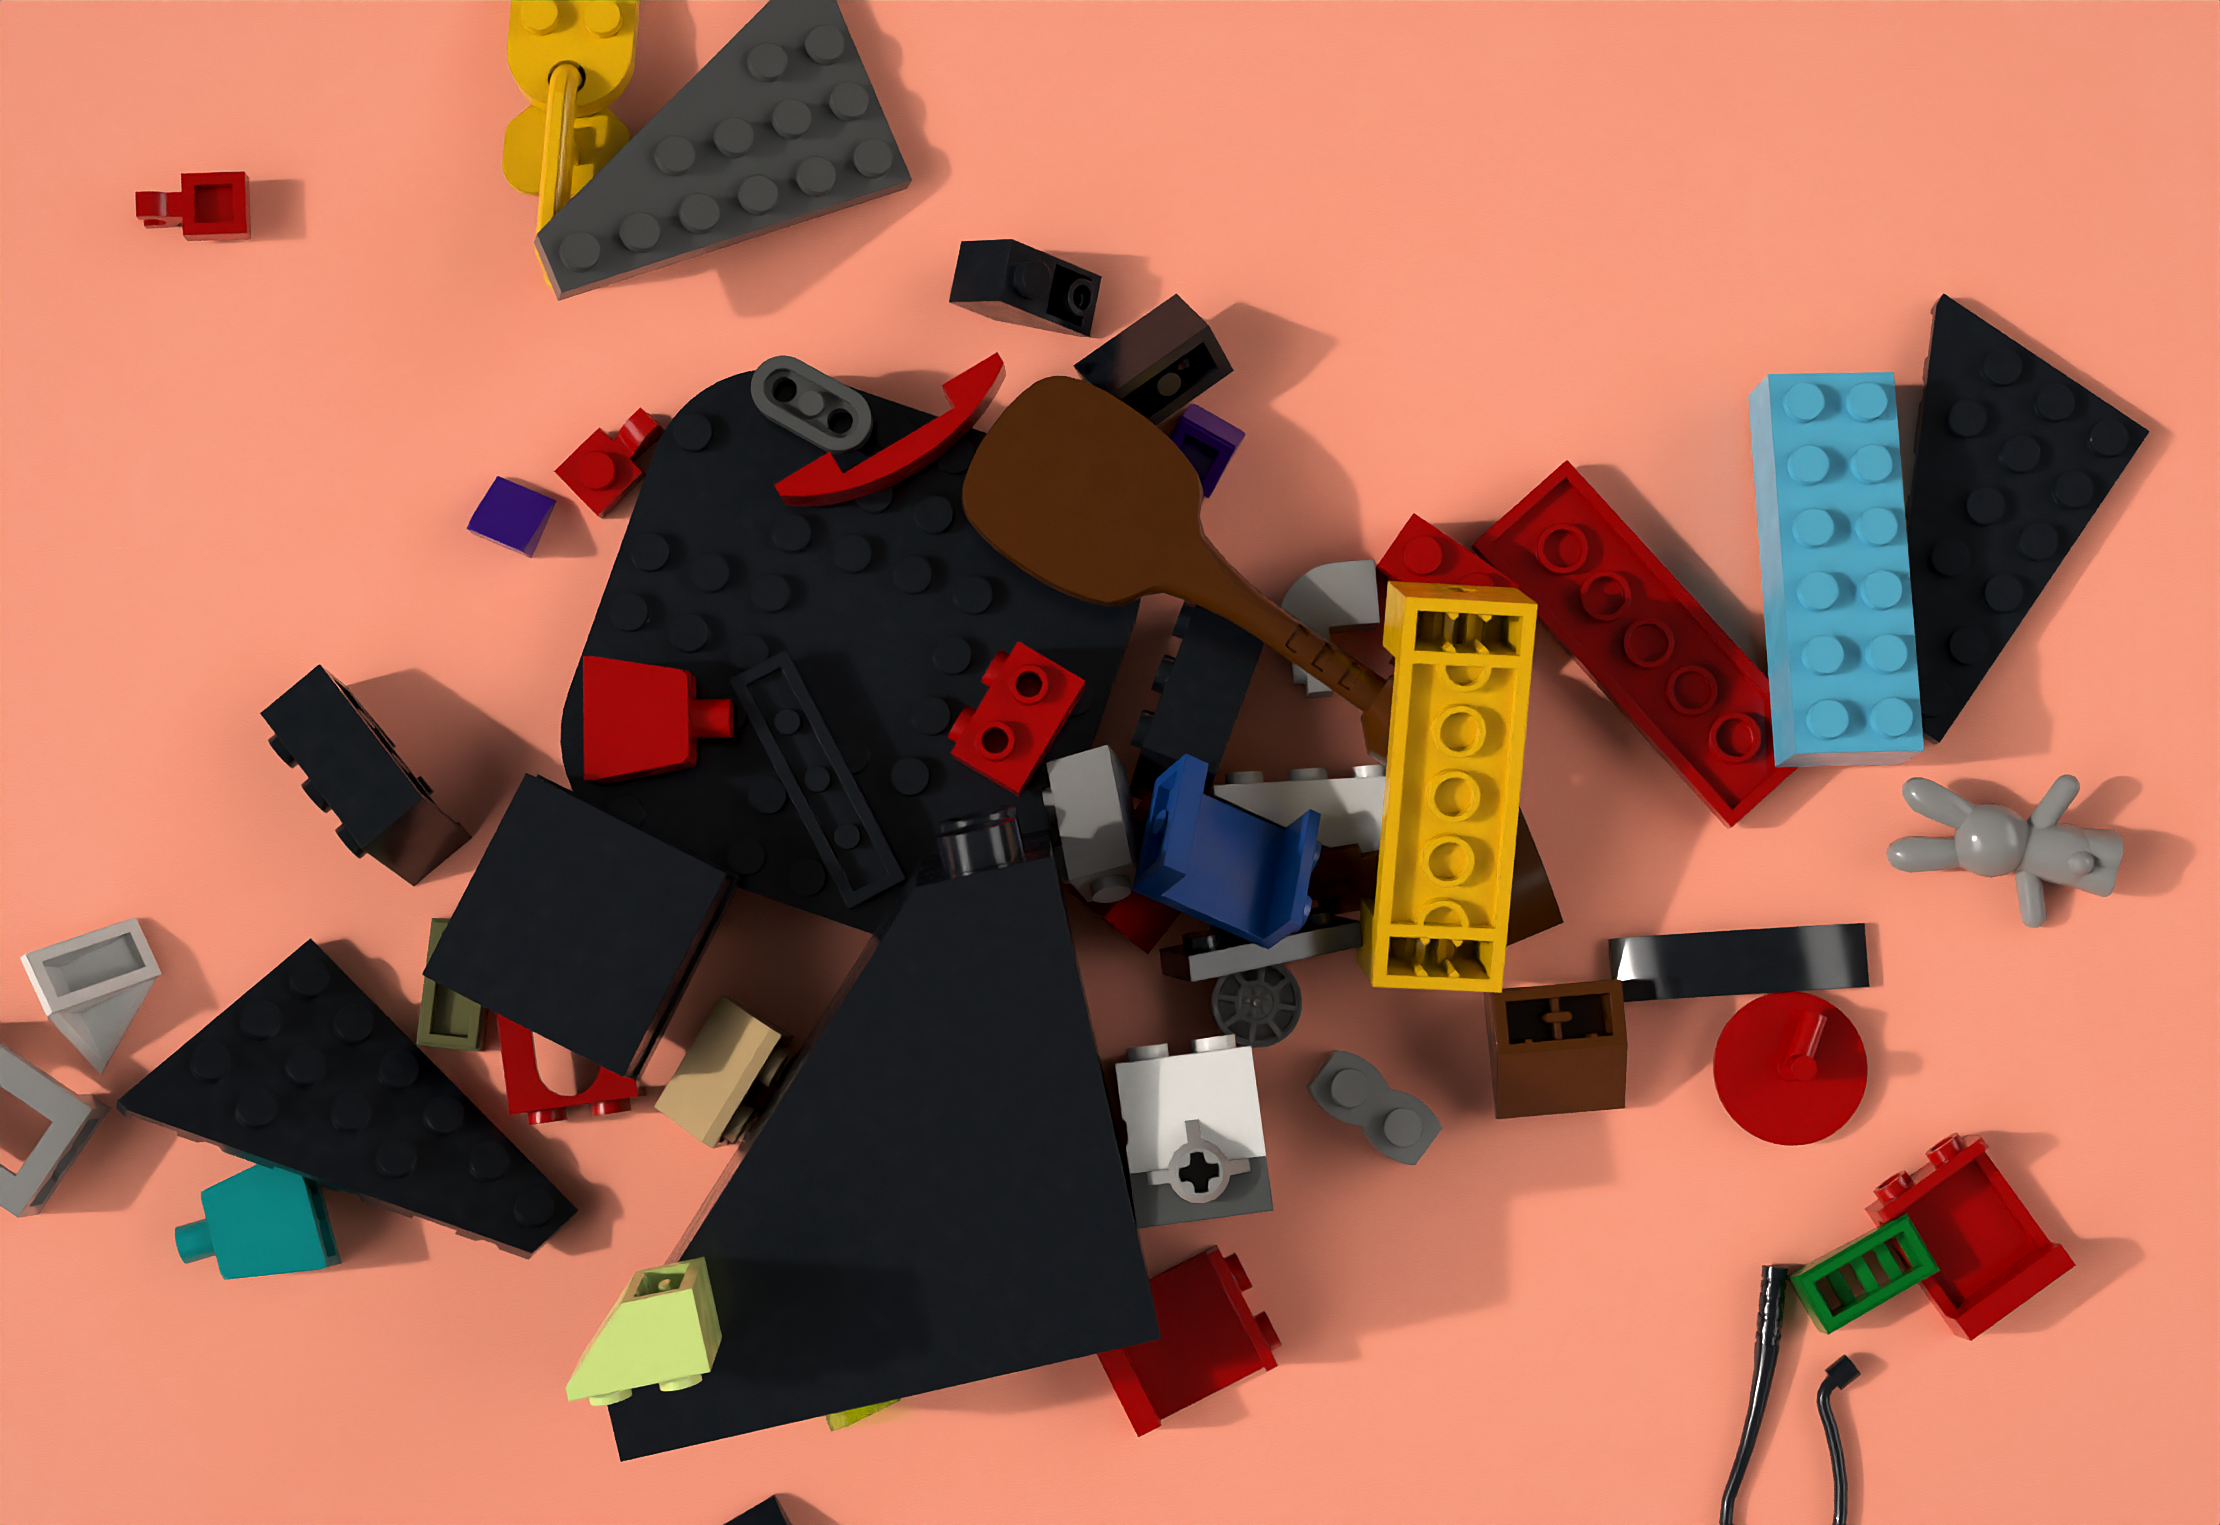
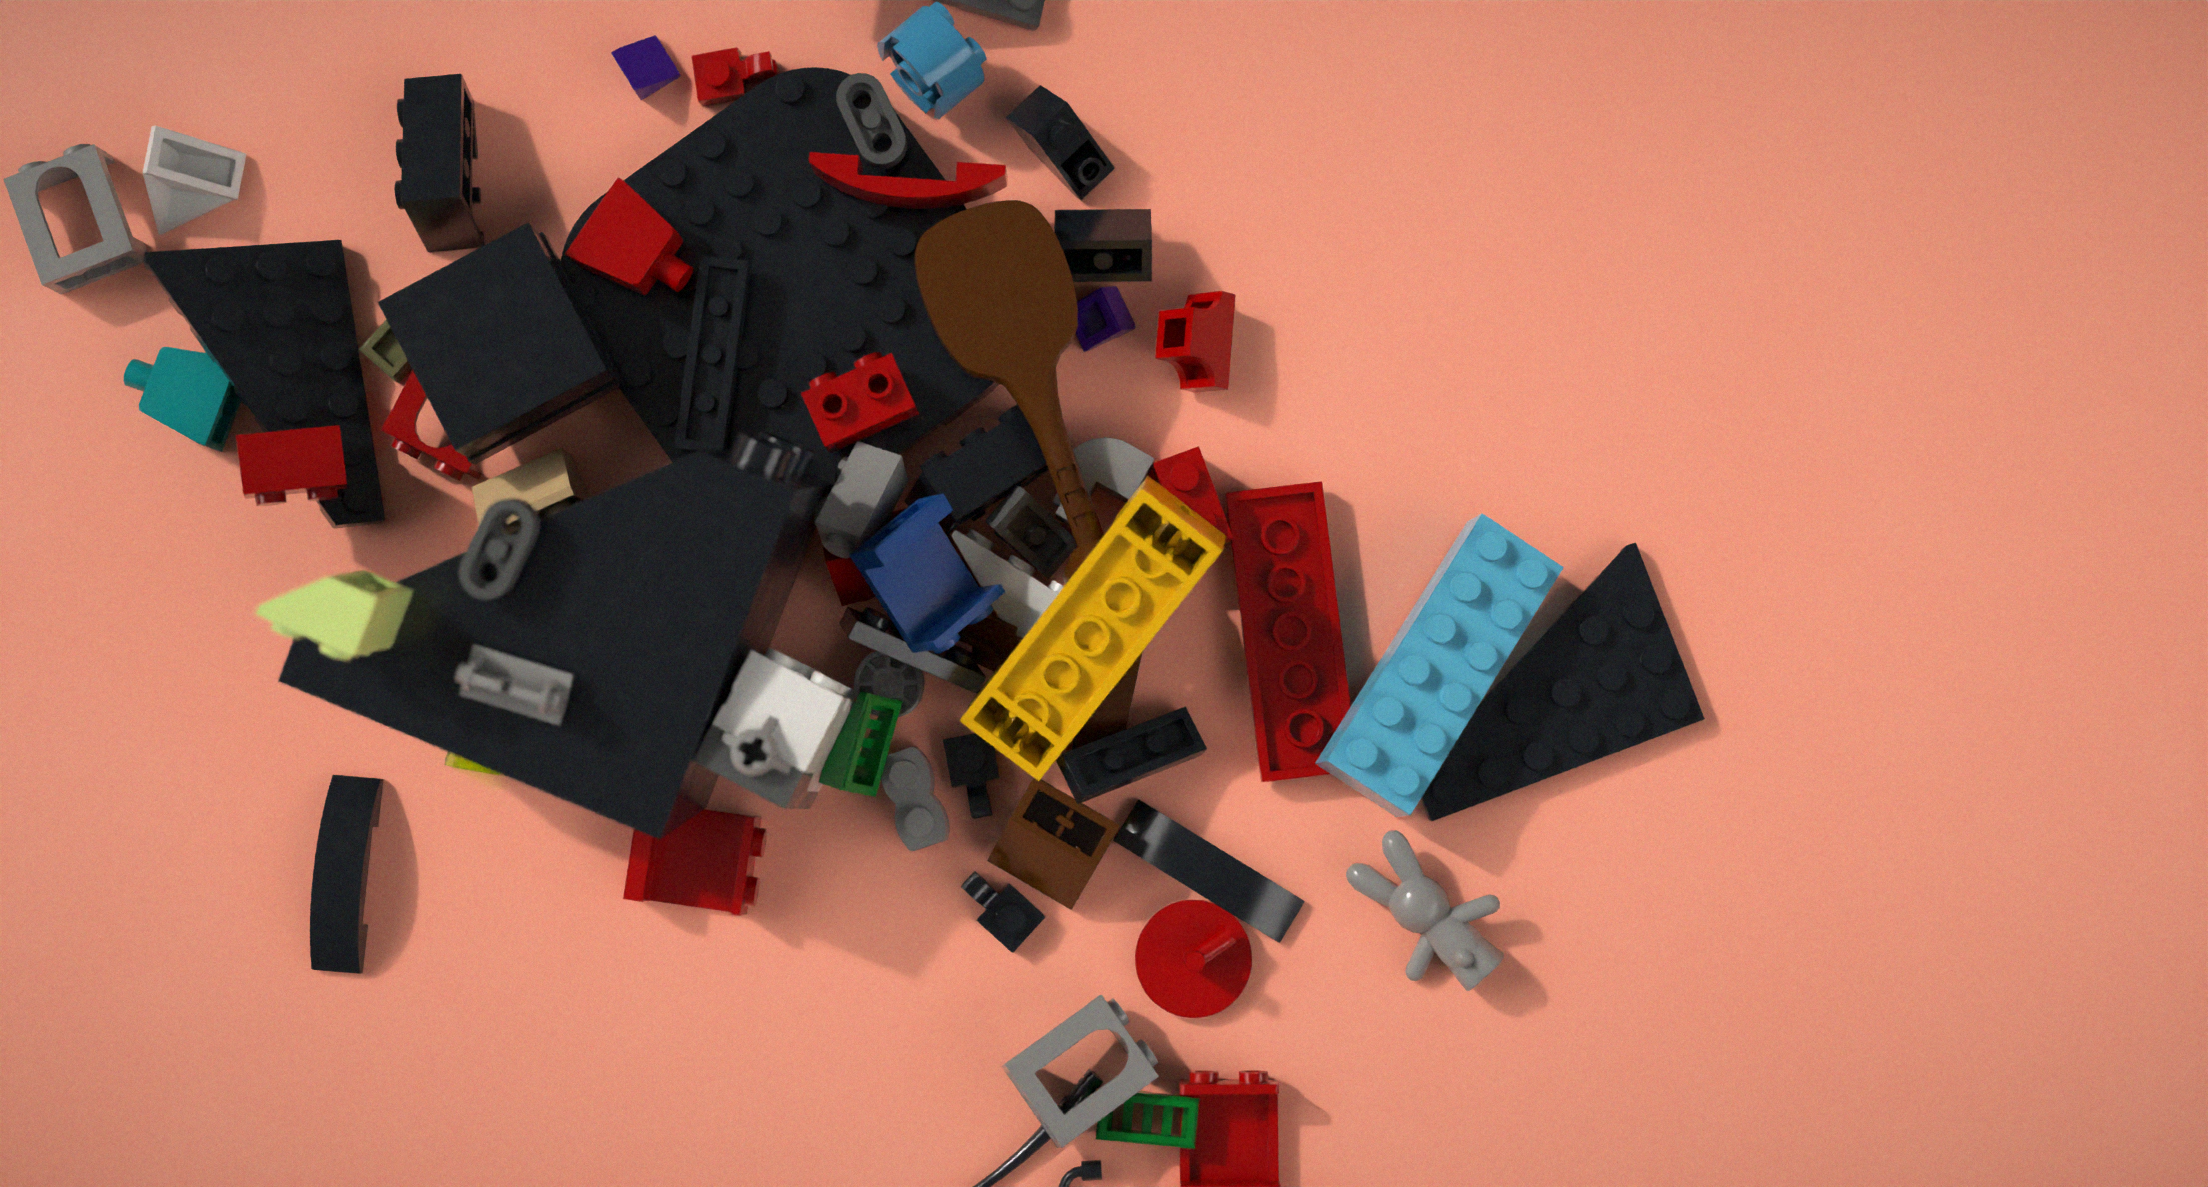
camera: 35 degrees right, 0 degrees up
(445, 1217) = (291, 463): none -> red brick
(771, 1143) = (498, 545): none -> dark grey plate
(828, 293) = (933, 60): none -> dark azure brick
(890, 1280) = (515, 684): none -> light grey hinge
(1287, 1088) = (856, 770): none -> green slope
(1295, 731) = (1031, 531): none -> dark grey slope
(1328, 399) = (1199, 340): none -> red brick
(1406, 1026) = (972, 764): none -> black plate
(1556, 1161) = (1006, 914): none -> black plate
(1574, 895) = (1131, 755): none -> black plate
(1699, 1311) = (1133, 1078): none -> light grey panel

